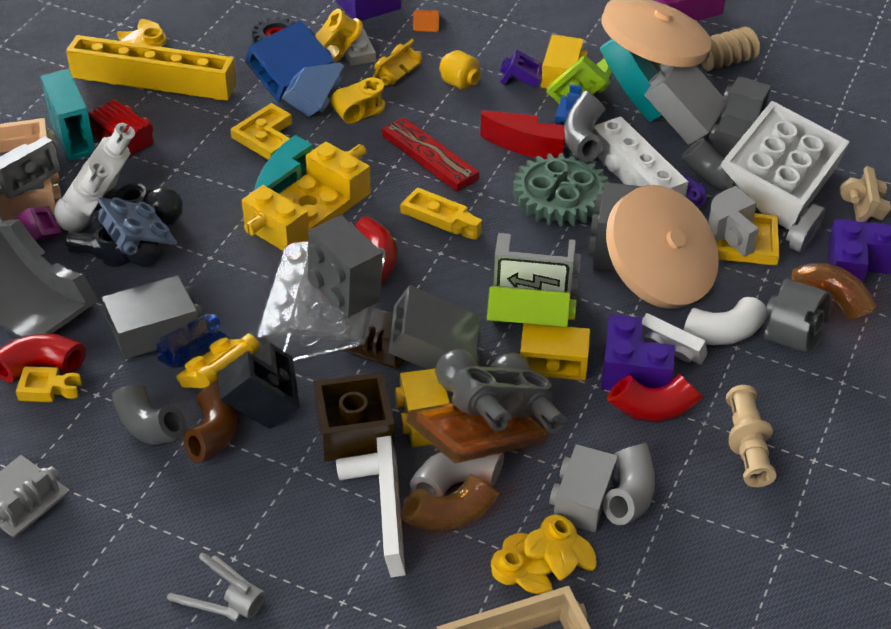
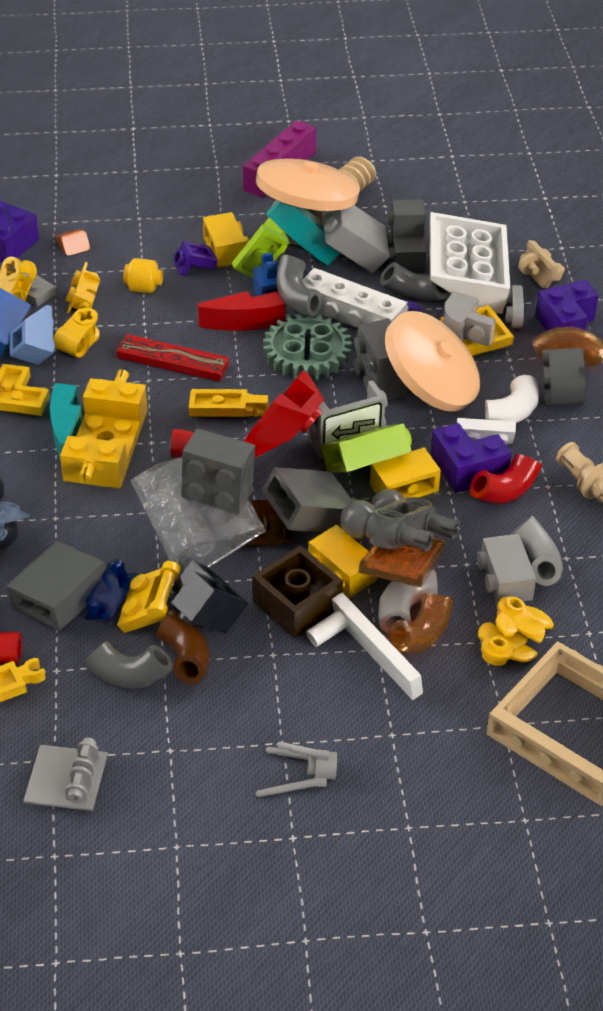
camera: 30 degrees left, 0 degrees up
(435, 241) = (287, 415): none -> red slope

